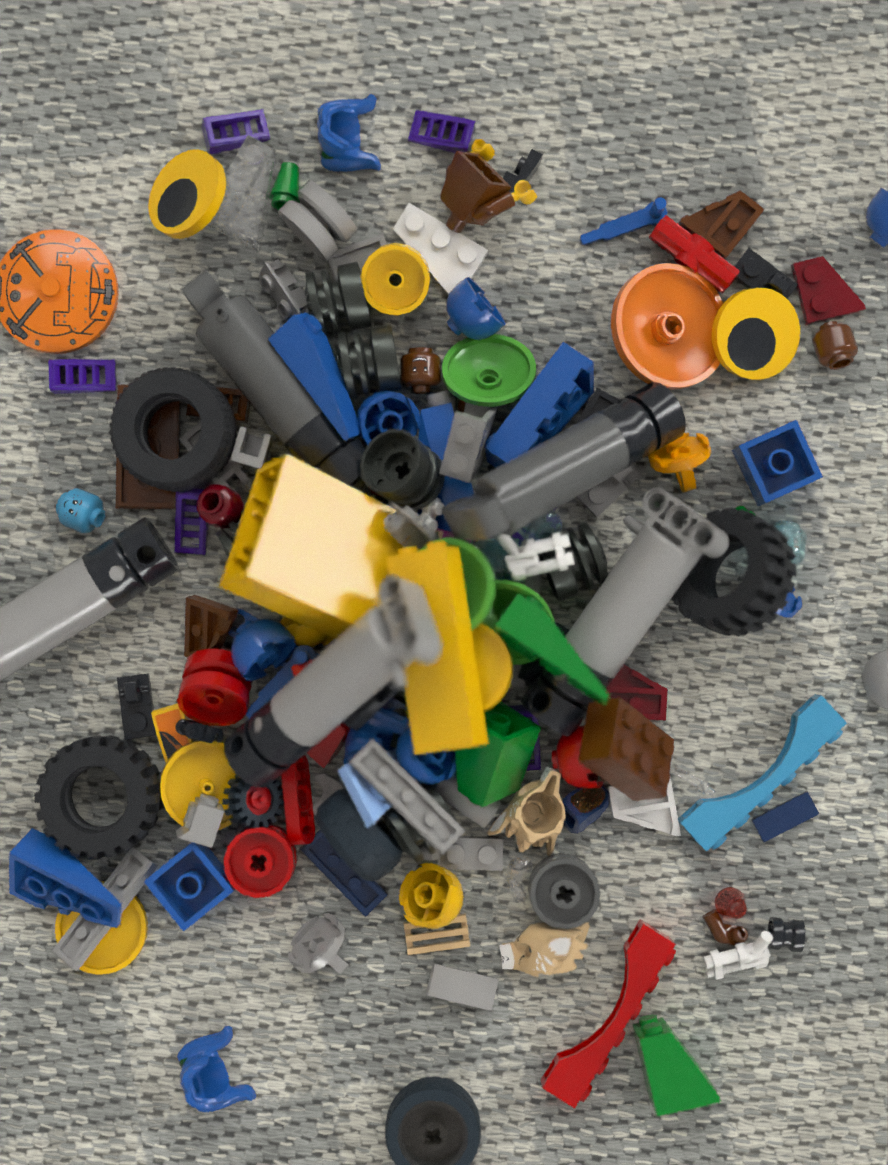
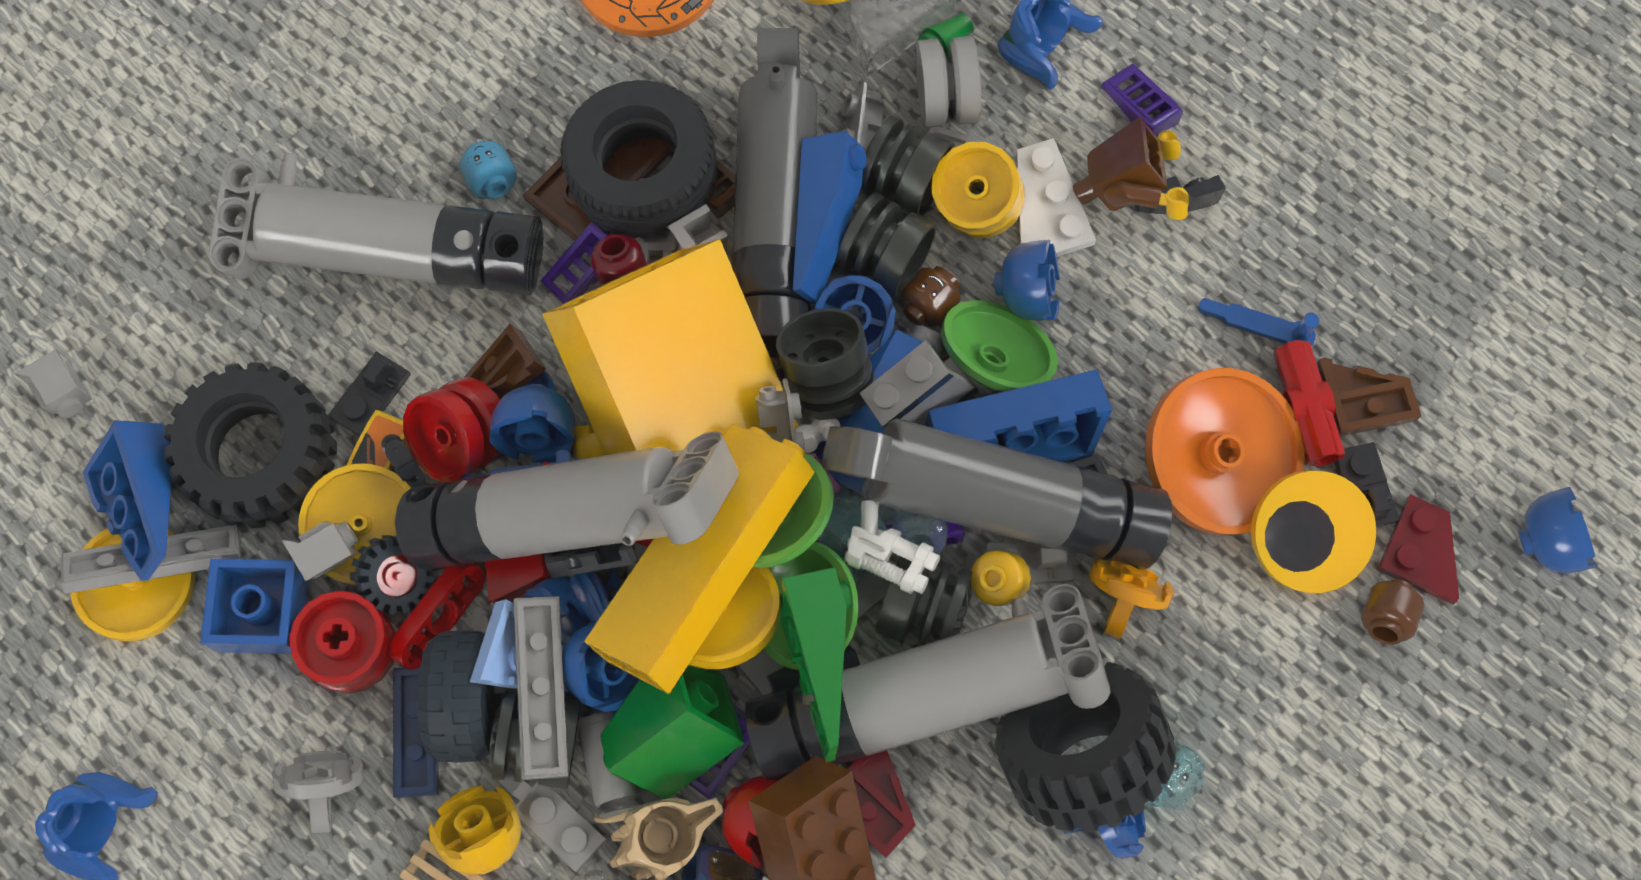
camera: 40 degrees right, 15 degrees down
(82, 364) = (579, 51): dark purple slope -> none
(604, 512) = (1000, 577): none -> yellow head
(777, 463) = (1230, 680): blue brick -> none

